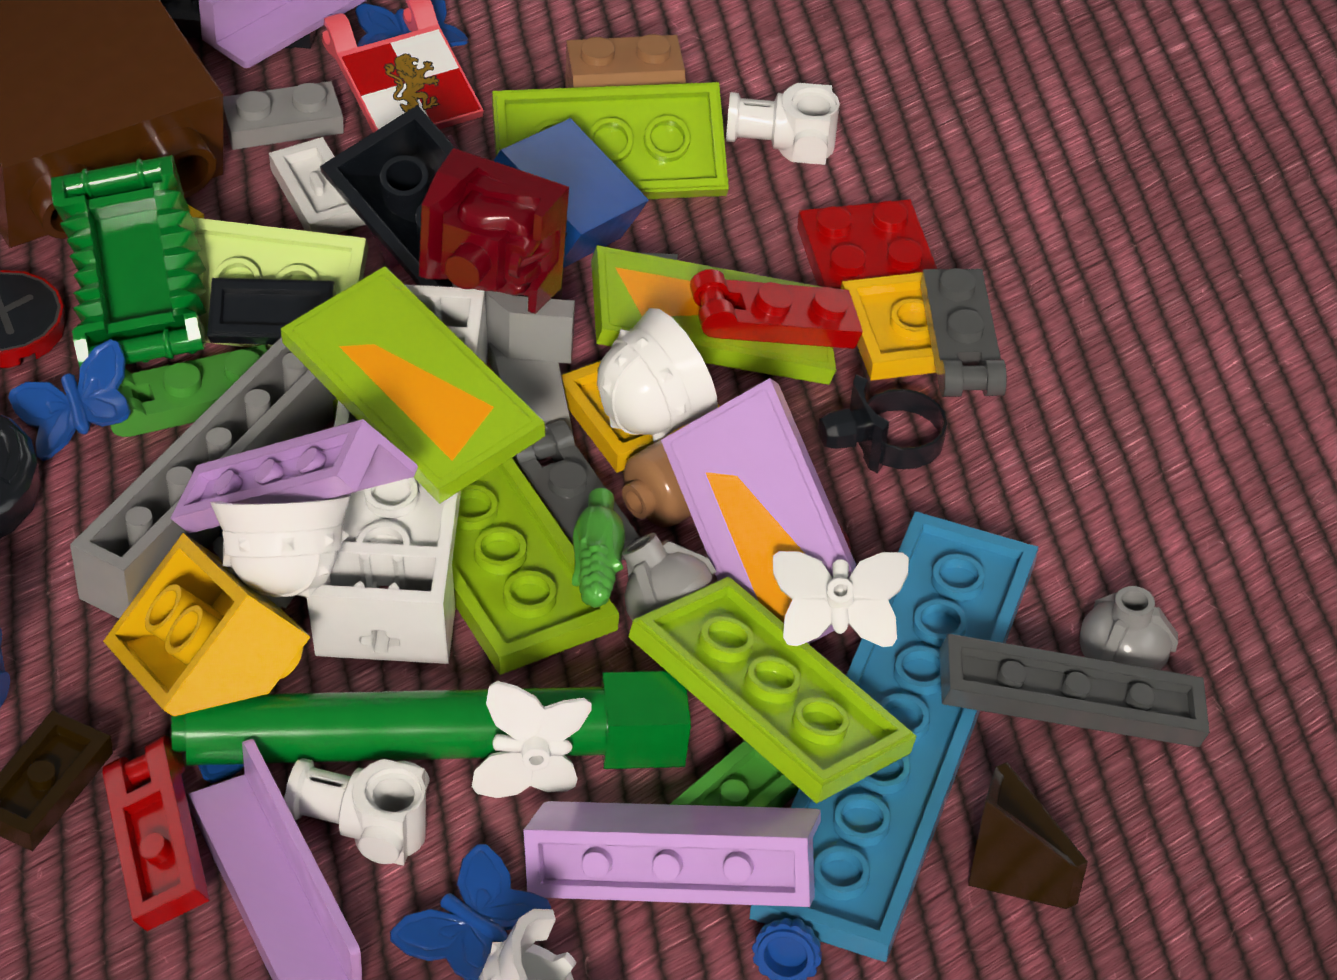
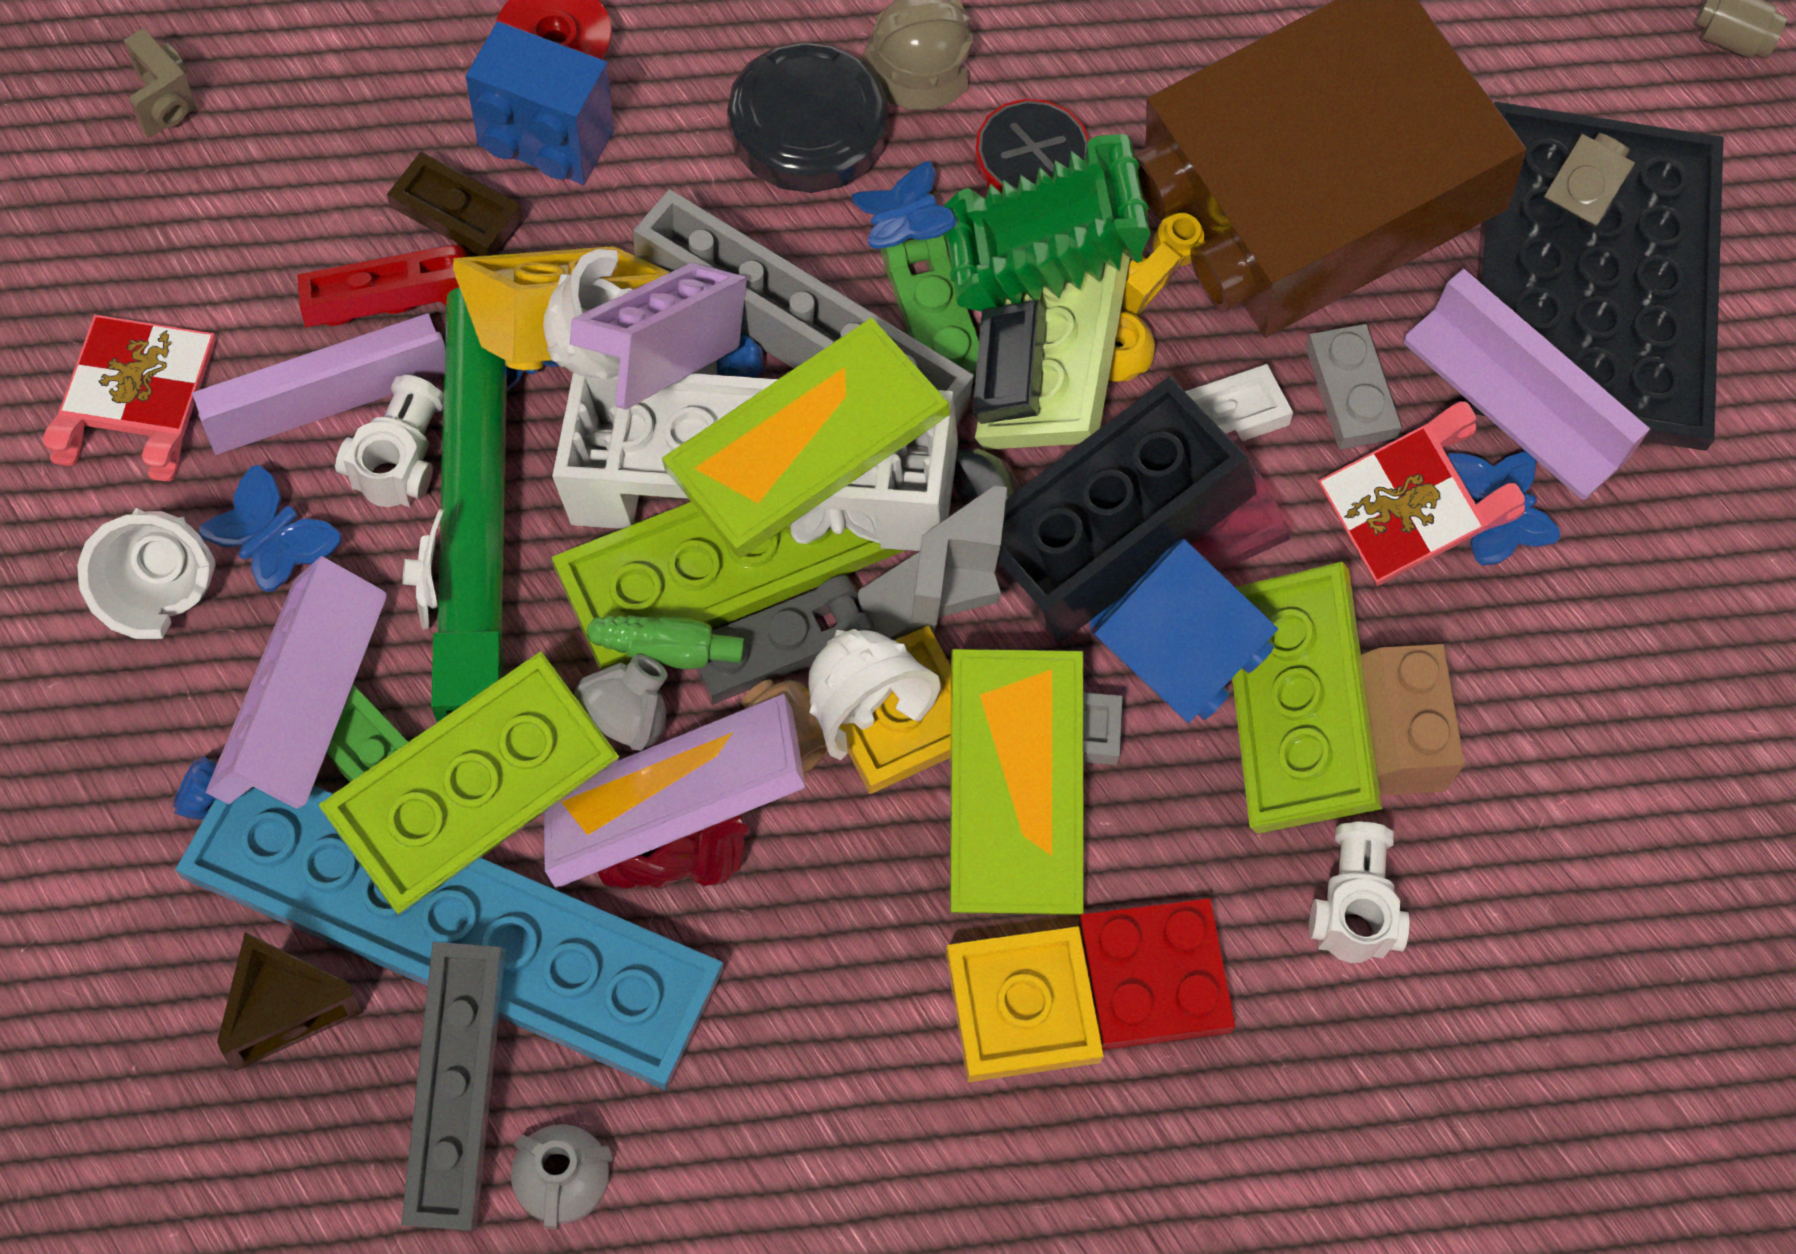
camera: 90 degrees right, 20 degrees up
(494, 229) = (965, 485): dark red brick -> none
(775, 312) = (1010, 843): red plate -> none
(840, 600) = (545, 836): white piece -> none
(864, 426) = (858, 919): black piece -> none
(962, 332) = (979, 1041): dark grey plate -> none

